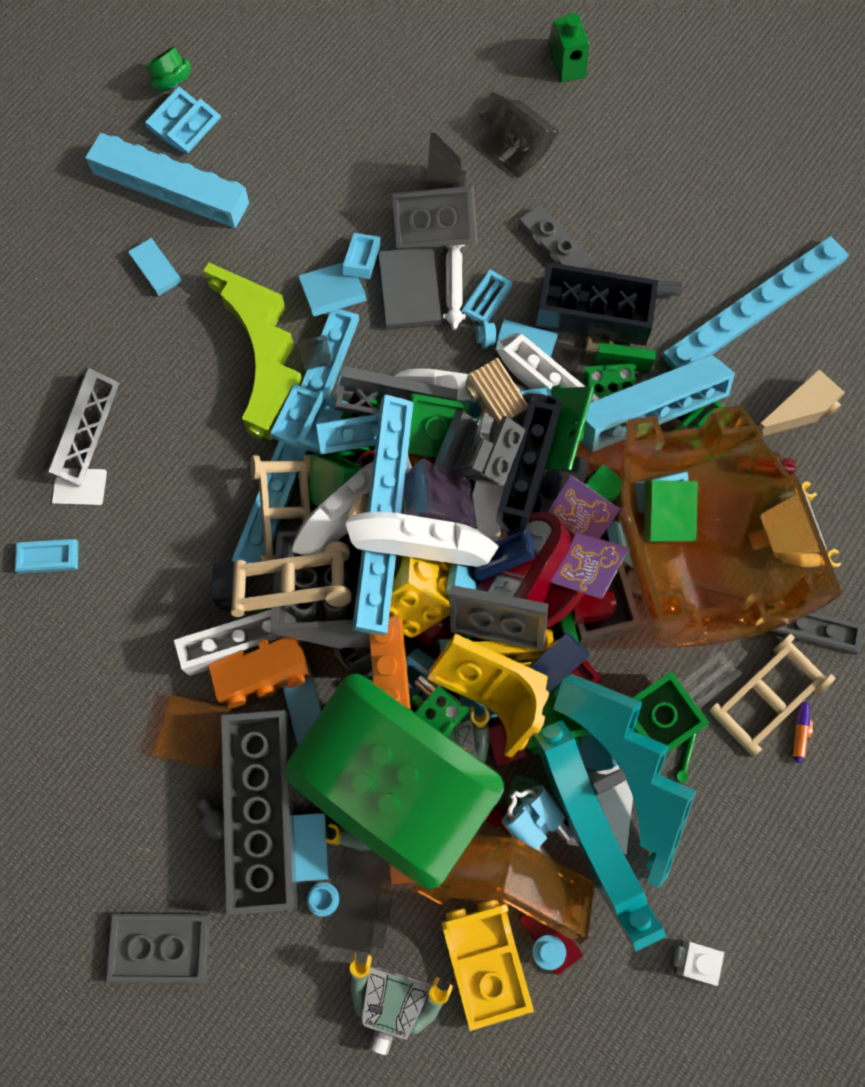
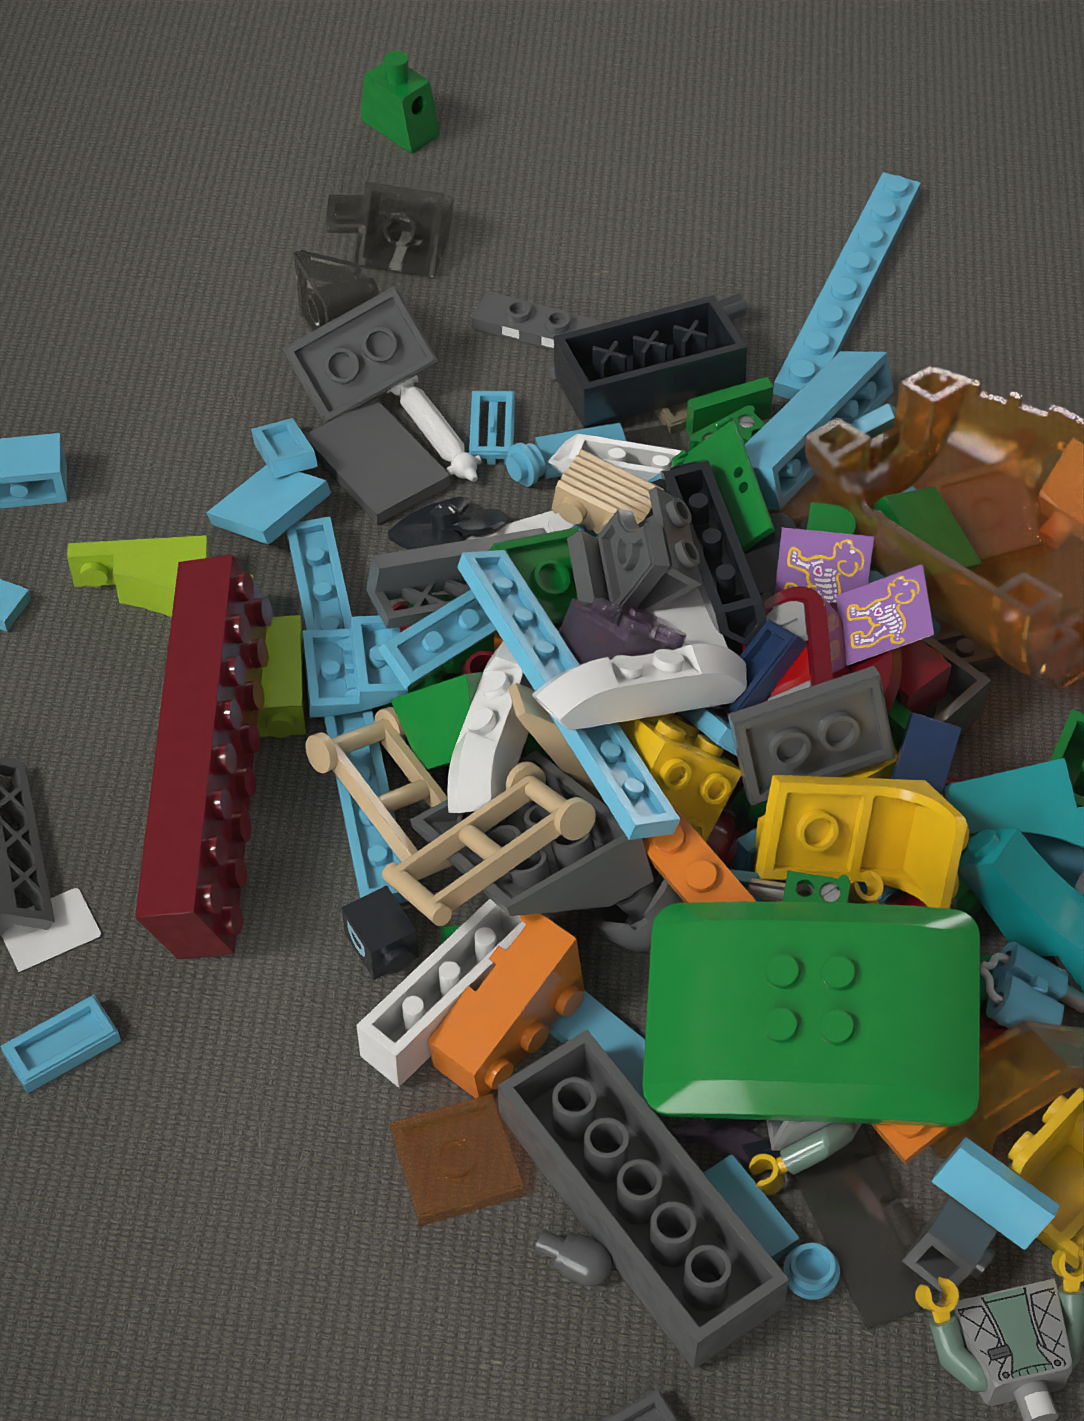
camera: 30 degrees left, 20 degrees down
(192, 437) = (205, 760): none -> dark red brick
(315, 352) = (302, 585): clear smoke tile -> none
(396, 934) = (951, 1245): none -> dark grey brick
(407, 353) = (441, 524): none -> black piece
(428, 928) = (995, 1193): none -> medium azure tile
(693, 418) = (876, 421): none -> medium azure tile
(805, 406) = (1001, 349): tan slope -> none

